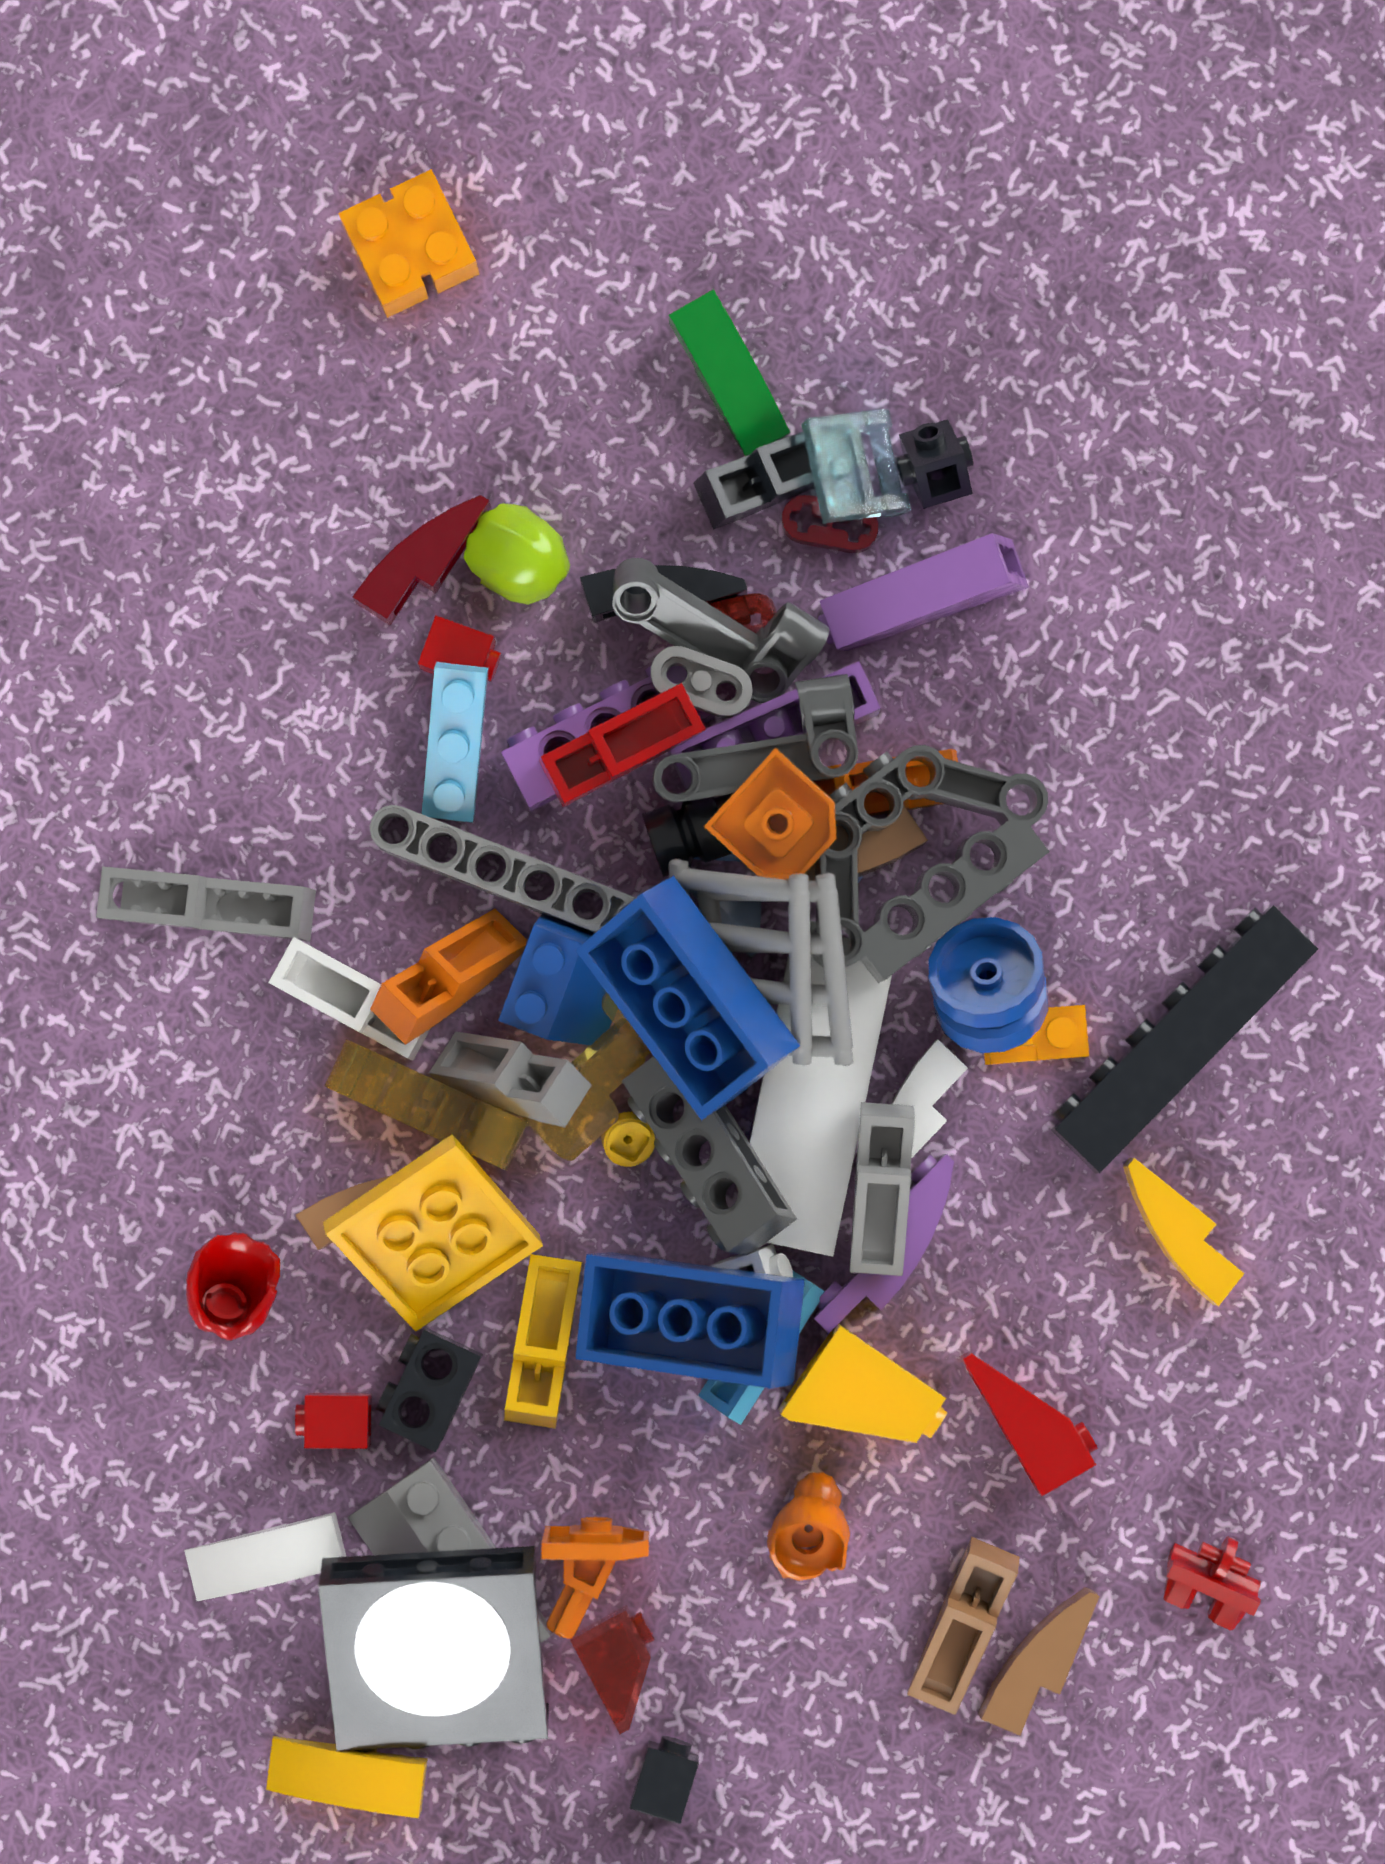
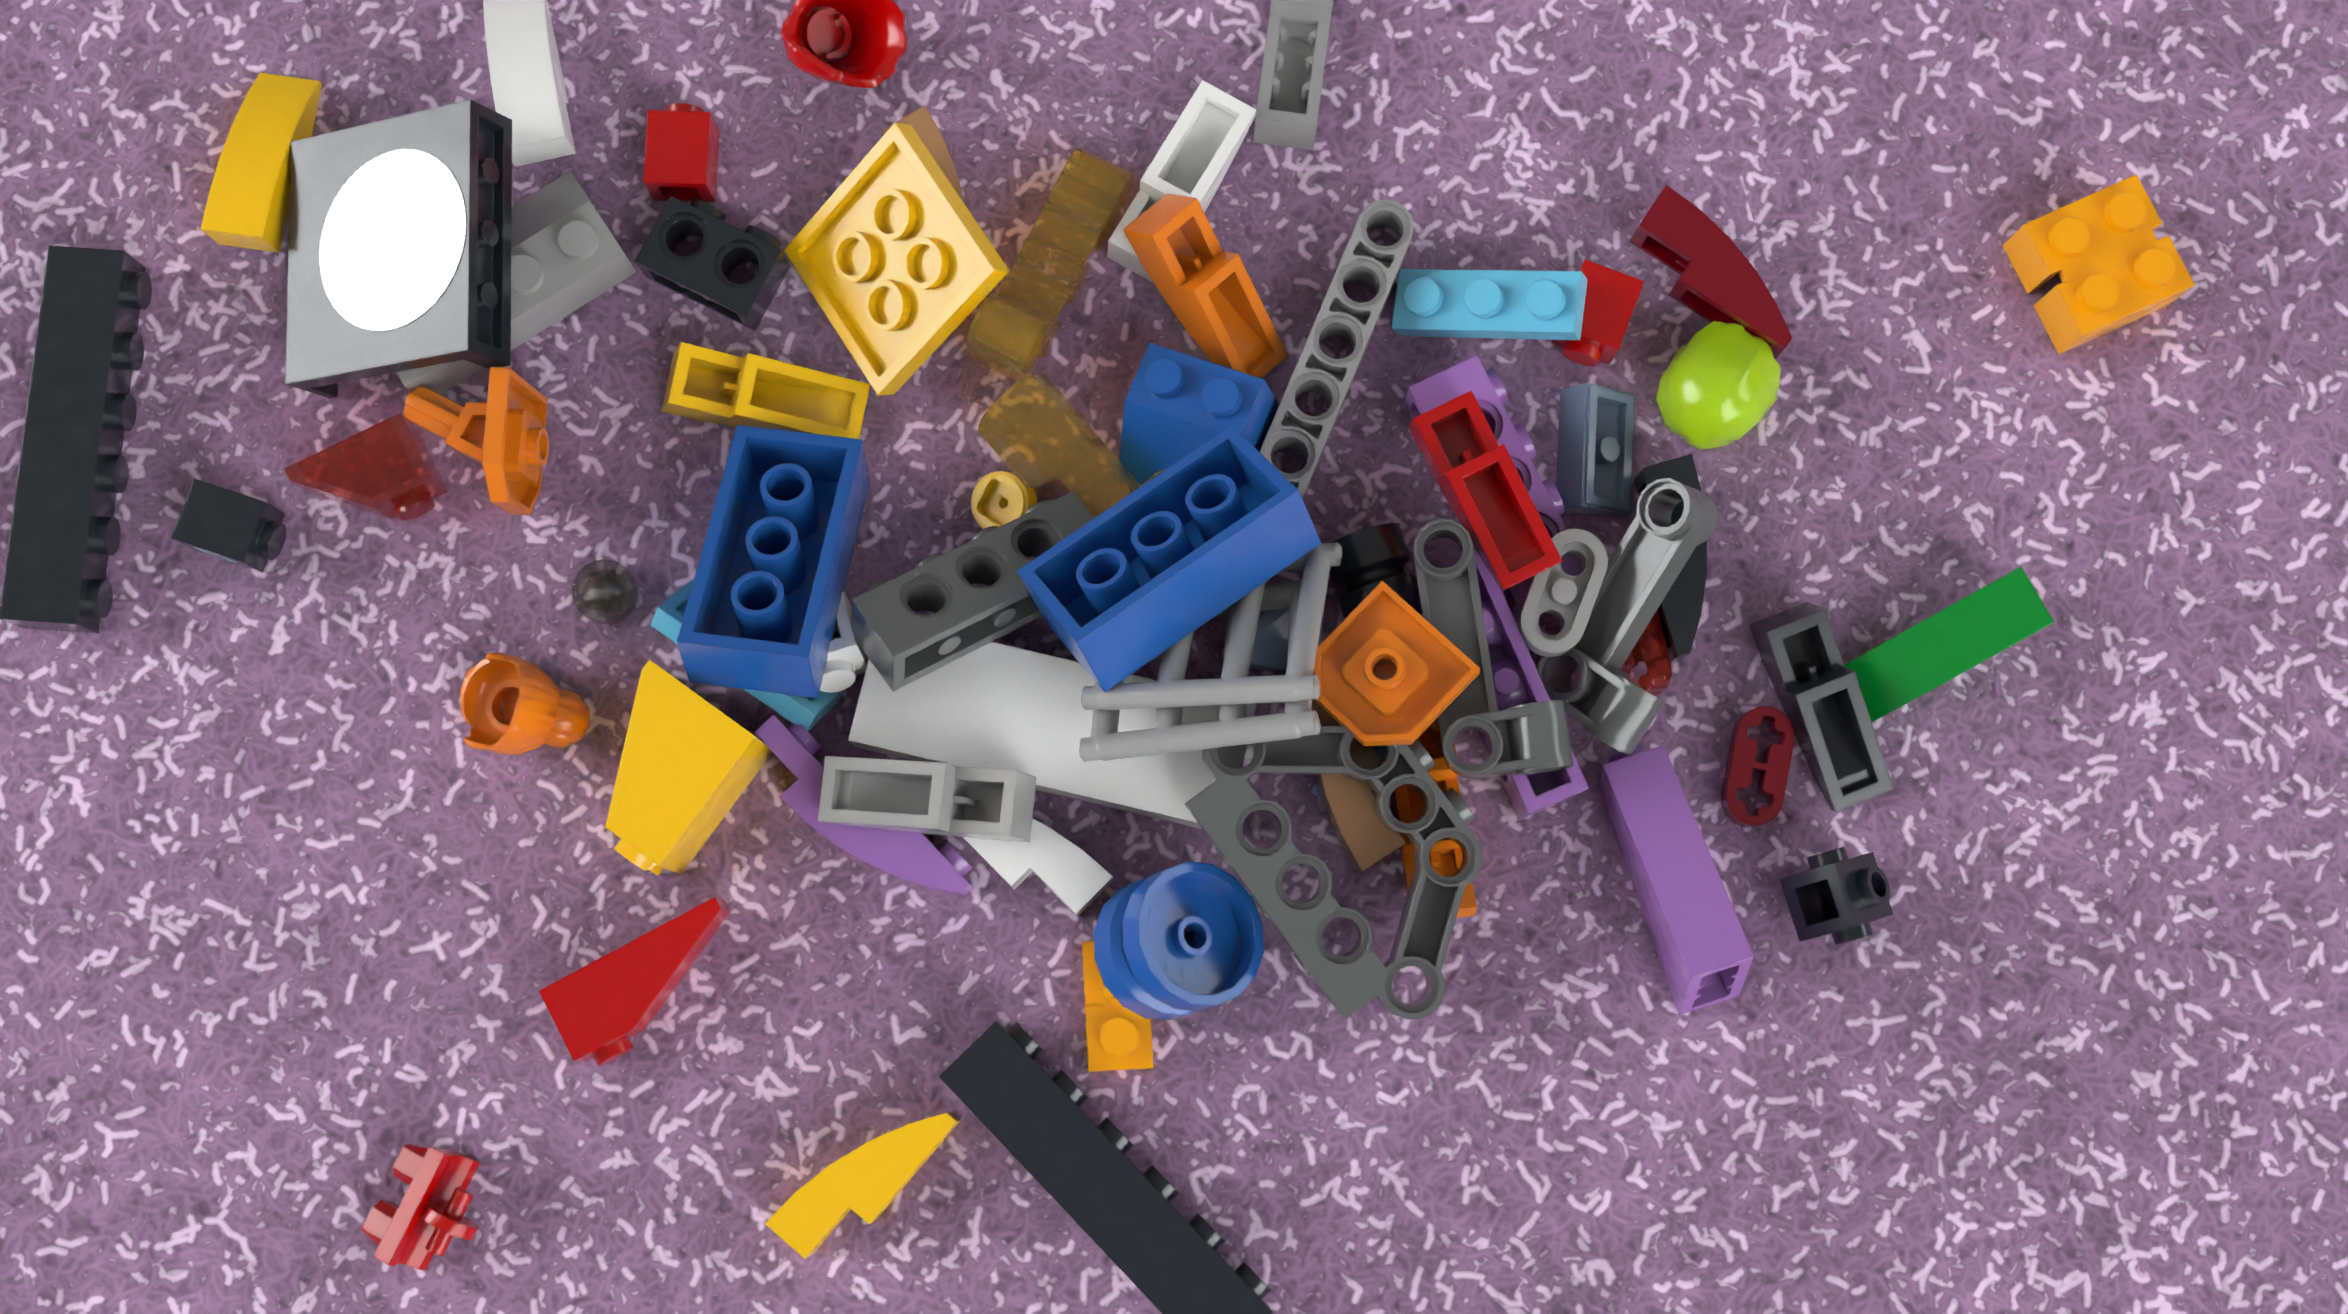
camera: 90 degrees right, 5 degrees down
(511, 1077) = (1079, 359): light grey slope -> none
(570, 654) = (1595, 450): none -> sand blue slope
(709, 1466) = (605, 592): none -> clear smoke tile
(842, 468) = (1829, 777): clear light blue plate -> none
(964, 1625) = (393, 894): medium nougat slope -> none
(1038, 1662) = (337, 983): medium nougat slope -> none

